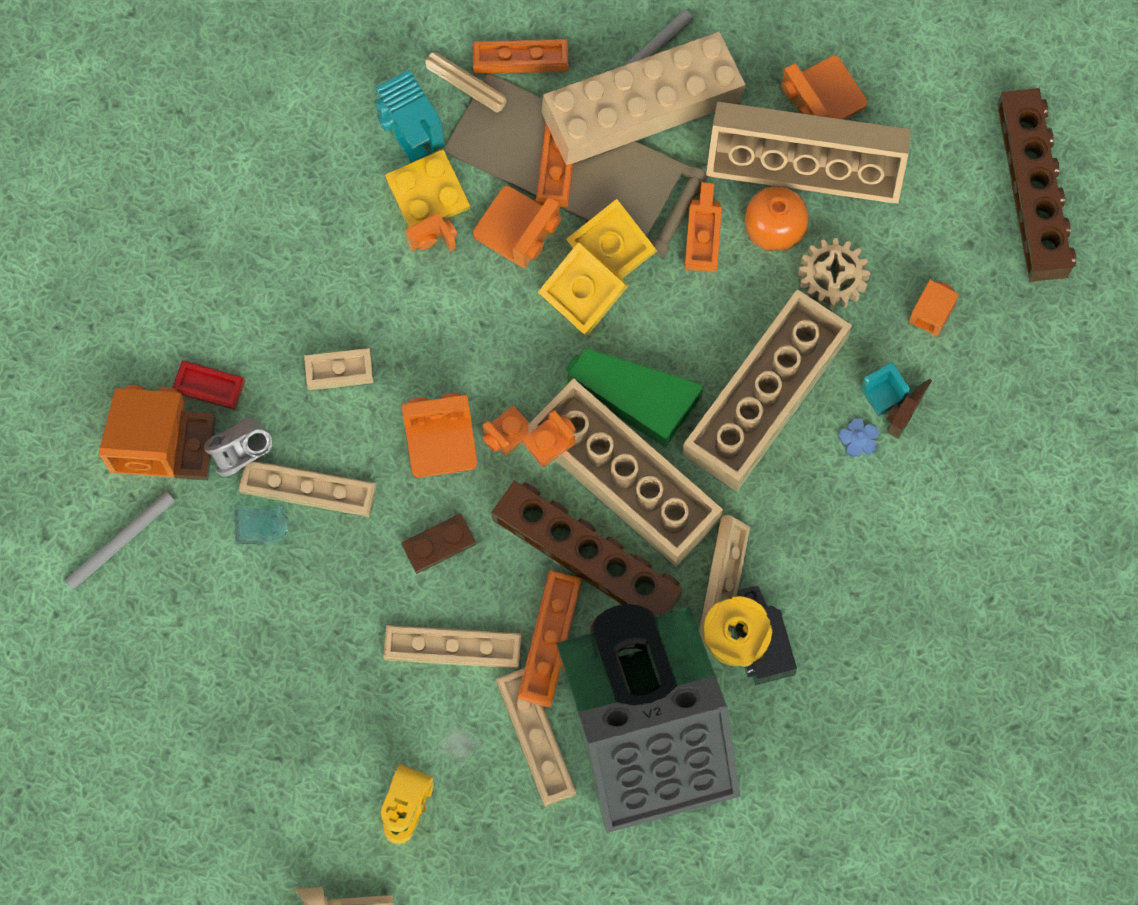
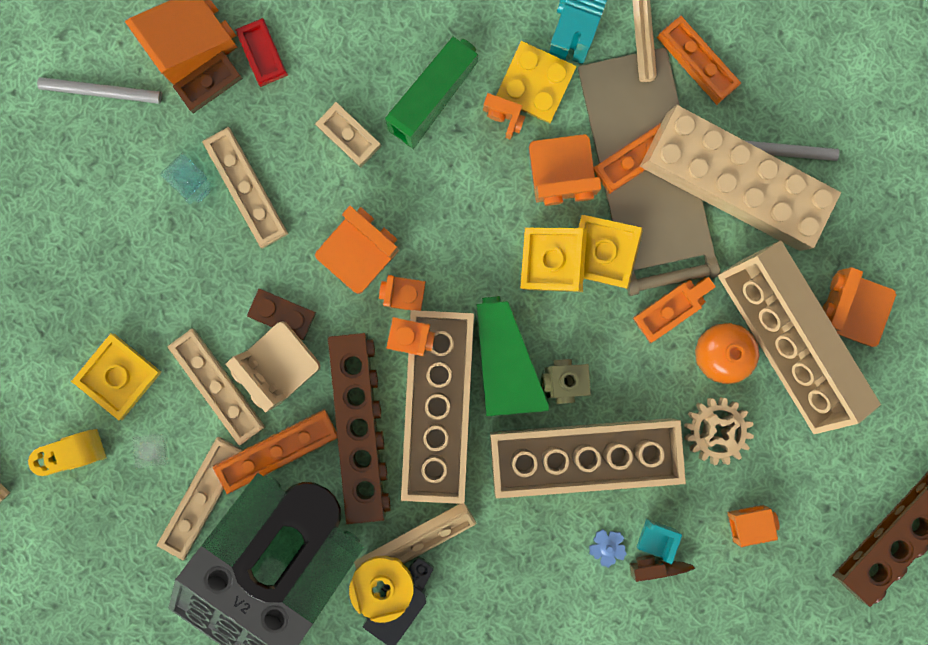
camera: 45 degrees right, 15 degrees up
(236, 446) = (231, 113): light grey piece -> none
(365, 275) = (431, 92): none -> green slope
(372, 720) = (116, 376): none -> yellow plate
(478, 576) = (274, 366): none -> tan bracket
(691, 355) = (576, 381): none -> olive brick

